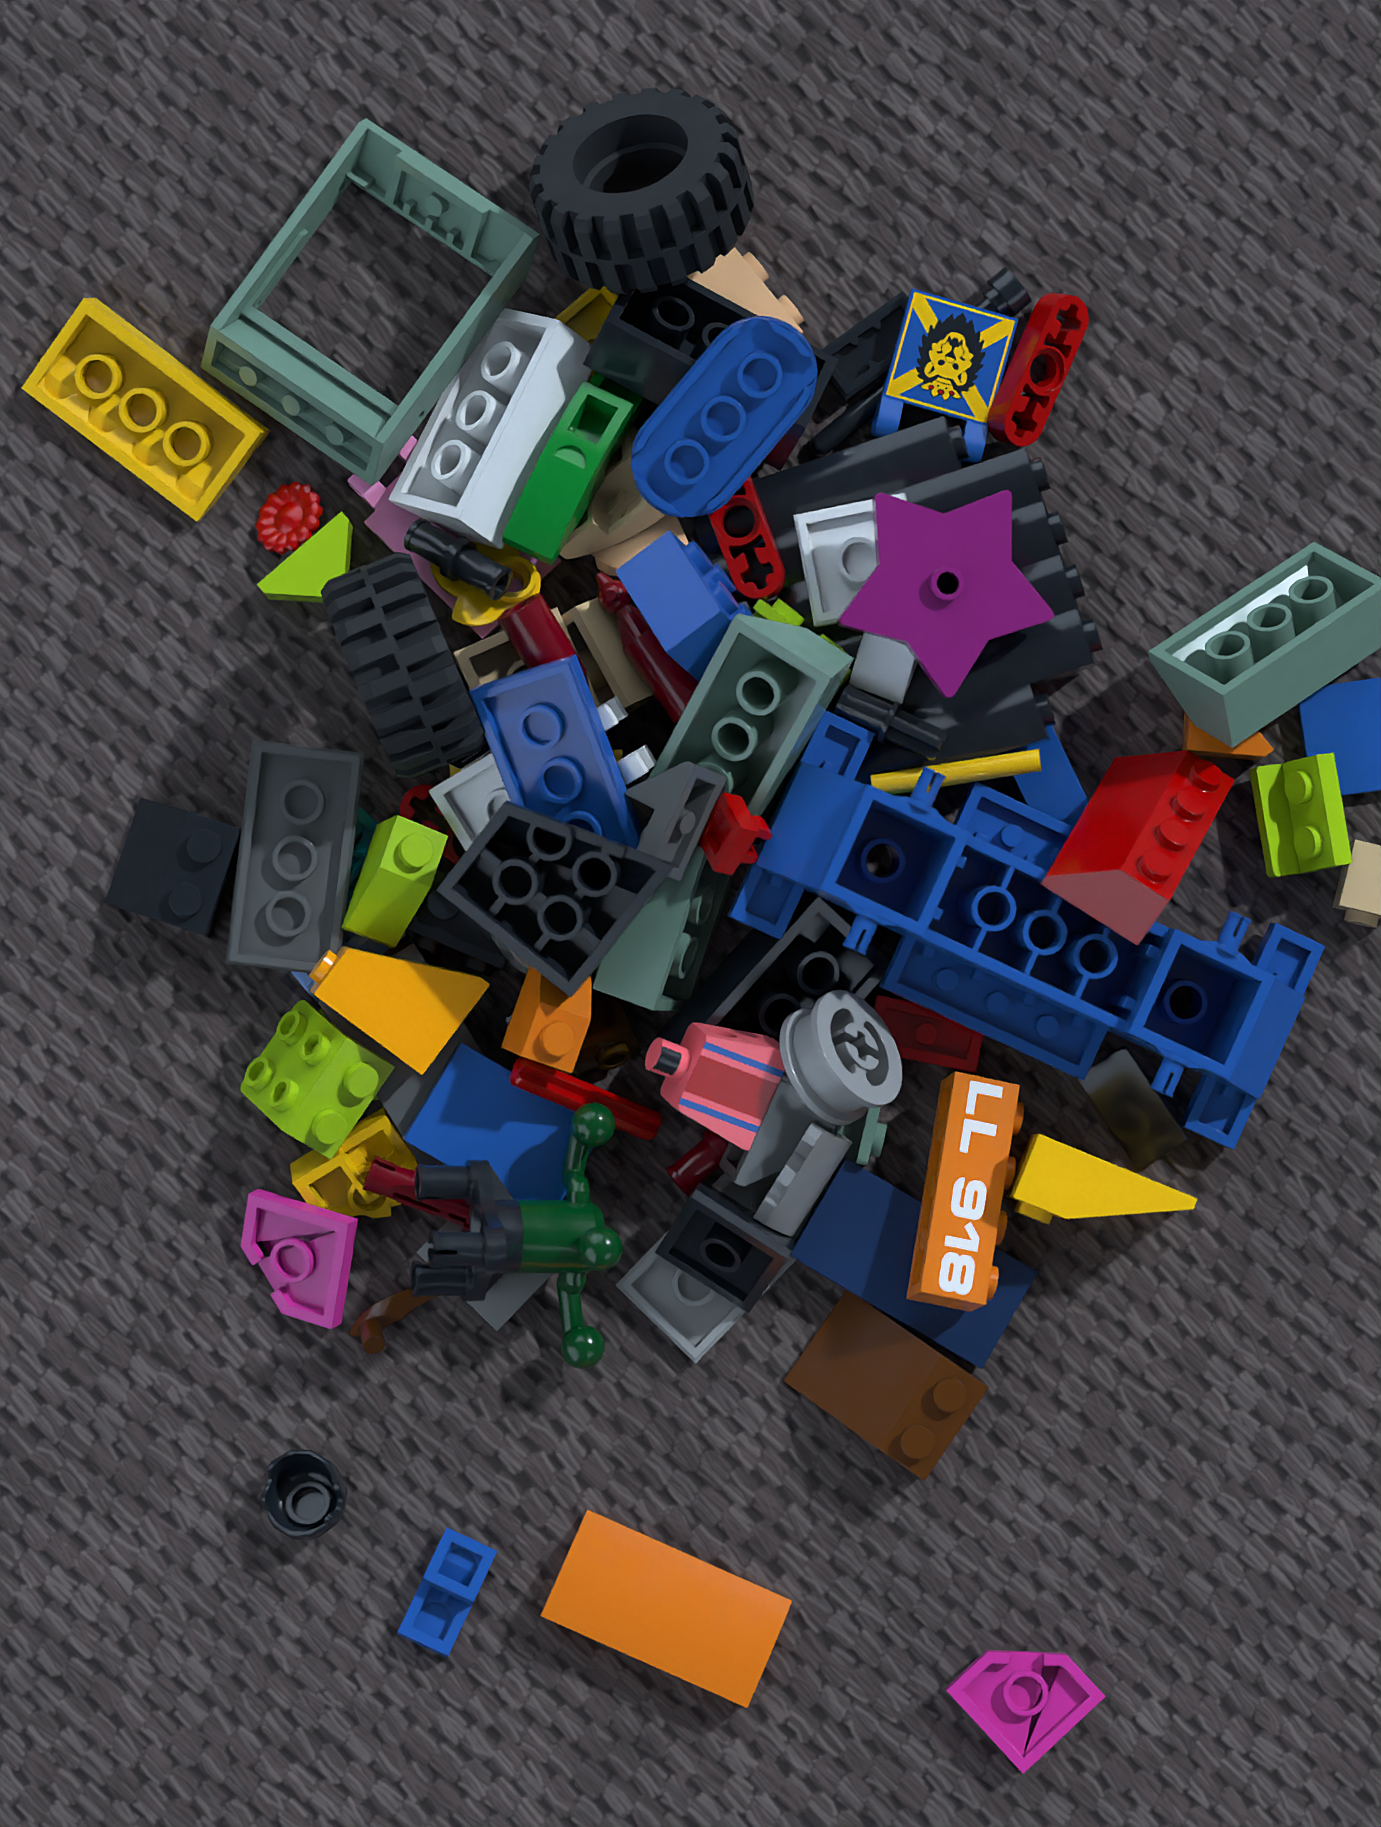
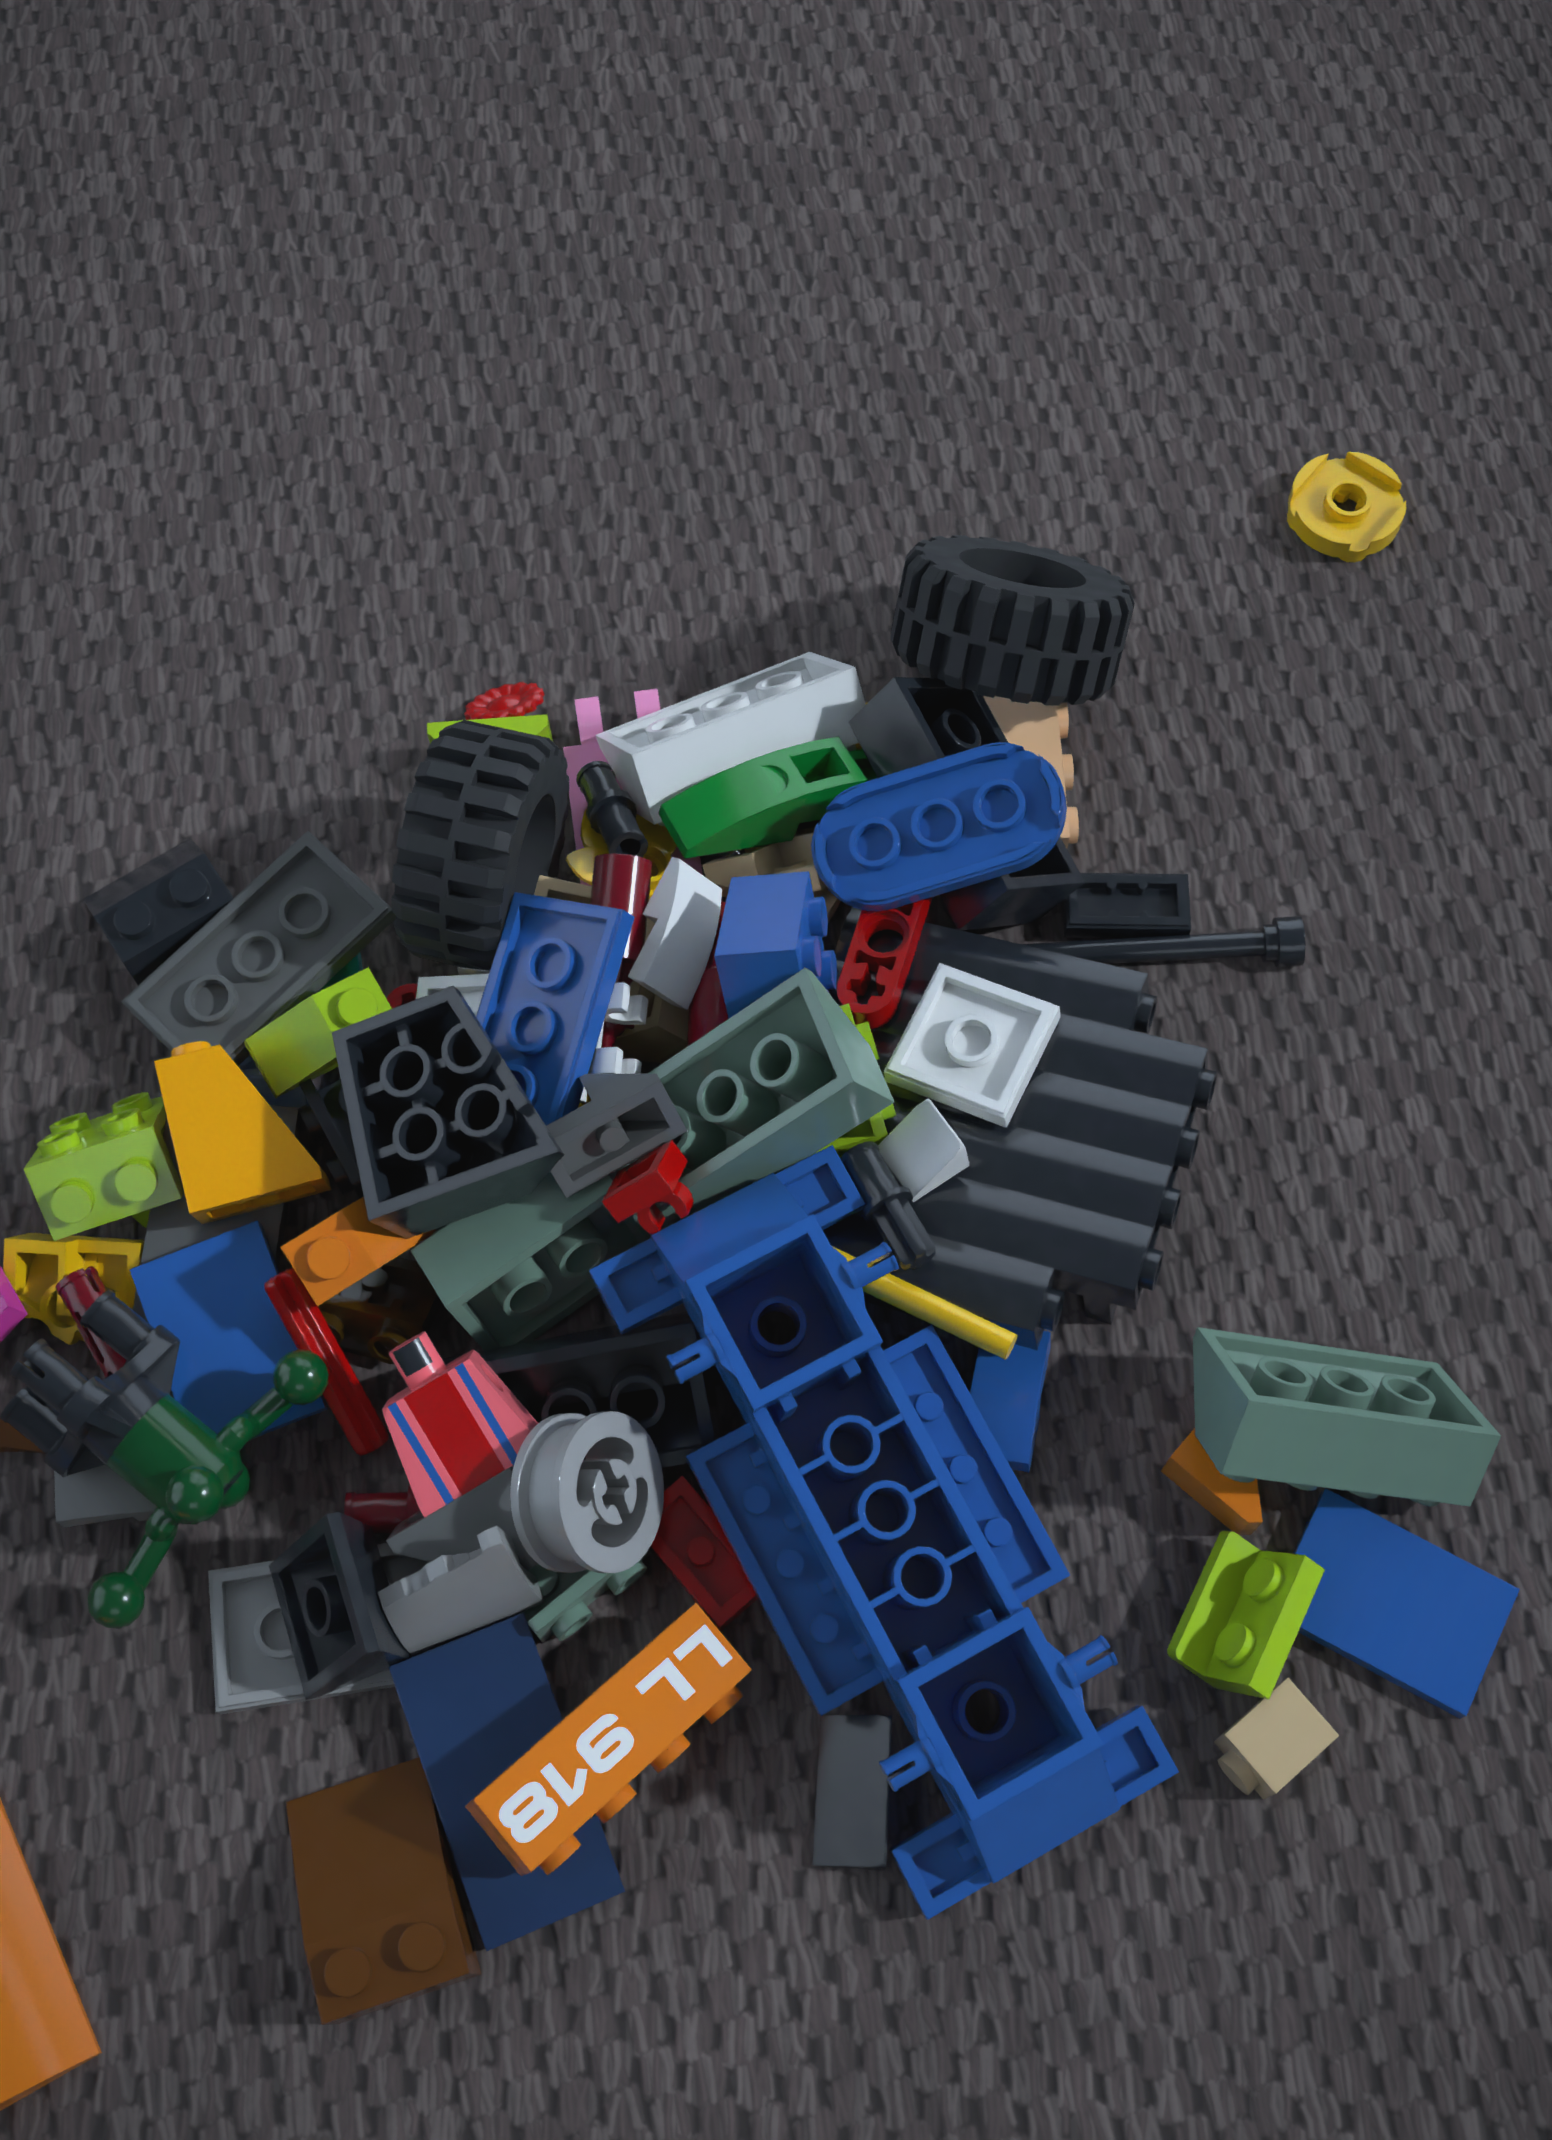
camera: 40 degrees right, 20 degrees down
(145, 408) = (464, 554): yellow slope -> none
(310, 389) = (607, 621): sand green window -> none
(593, 612) = (683, 935): none -> white slope
(902, 591) = (1018, 1147): magenta plate -> none
(946, 363) = (1194, 955): flag -> none
(1058, 362) = (1295, 1021): red beam -> none
(1077, 1185) = (728, 1821): yellow slope -> none
(1138, 838) = (1054, 1502): red slope -> none

